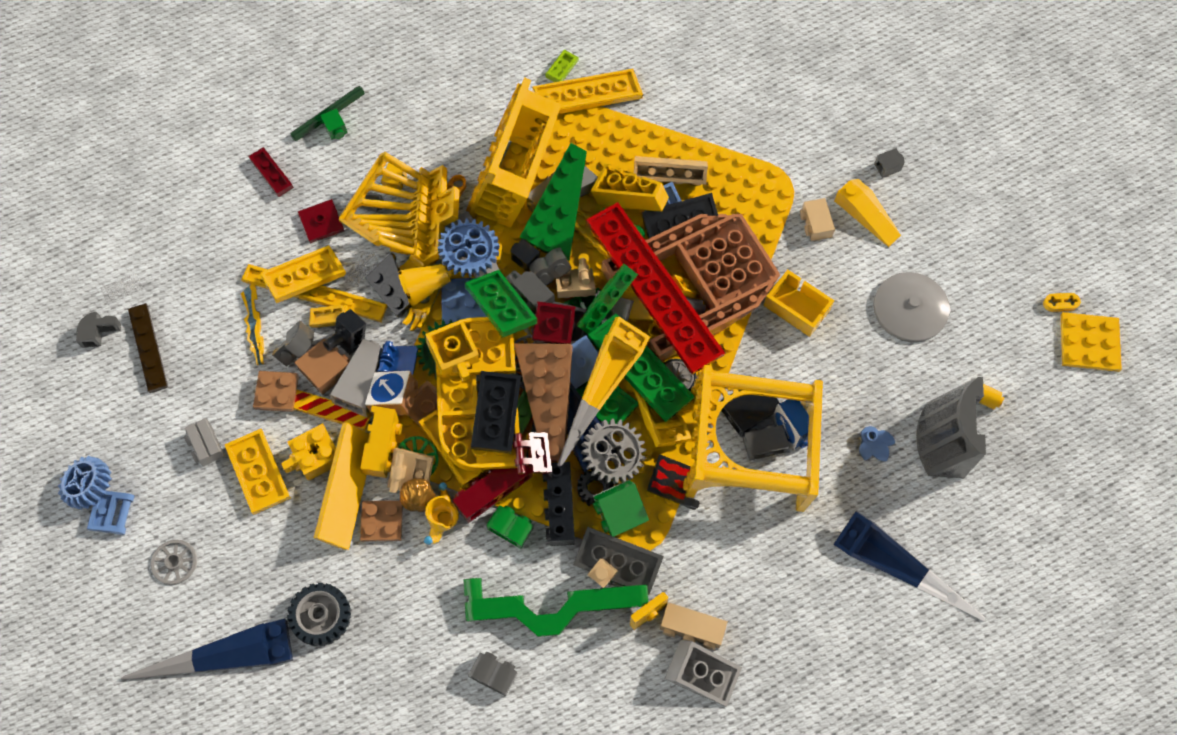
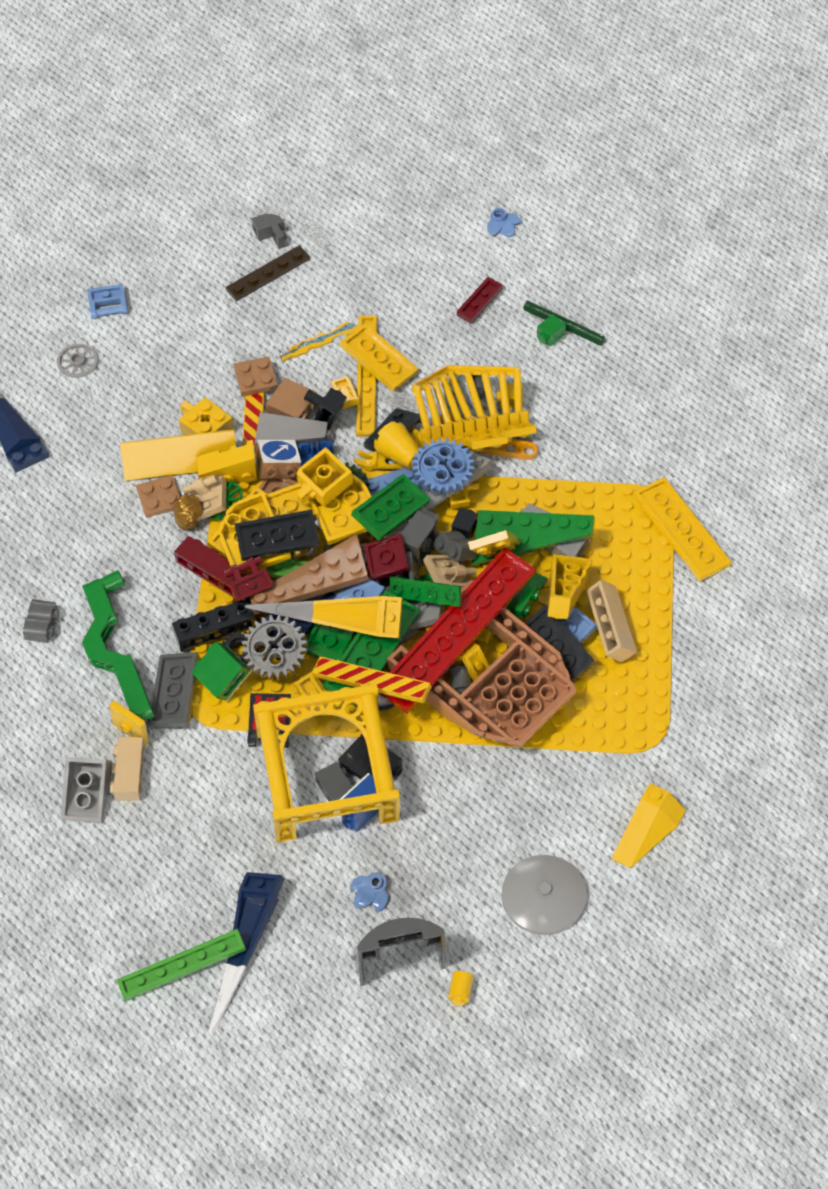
camera: 75 degrees right, 10 degrees down
(84, 482) = (125, 271): medium blue gear -> none
(189, 125) = (504, 224): none -> medium blue plate
(204, 442) = (190, 342): light grey brick -> none
(257, 471) = (179, 385): yellow plate -> none
(296, 344) = (306, 373): dark grey brick -> none
(321, 221) = (443, 352): dark red plate -> none
(323, 630) = (71, 475): wheel -> none
(441, 515) = (173, 533): yellow piece -> none
(510, 526) = (182, 594): green brick -> none
(527, 123) = (559, 482): yellow plate -> none
(562, 66) = (704, 498): lime plate -> none
(575, 228) = (490, 544): none -> yellow plate
(602, 572) = (154, 675): tan brick -> none
(686, 372) = (386, 682): none -> yellow tile
(799, 308) = (502, 778): yellow piece -> none
(817, 219) = (613, 777): tan brick -> none
(889, 162) = (715, 833): dark grey brick -> none
(916, 628) = (181, 965): none -> bright green plate
(1063, 305) = (611, 1045): yellow beam -> none
(1090, 342) = (568, 1087): yellow plate -> none

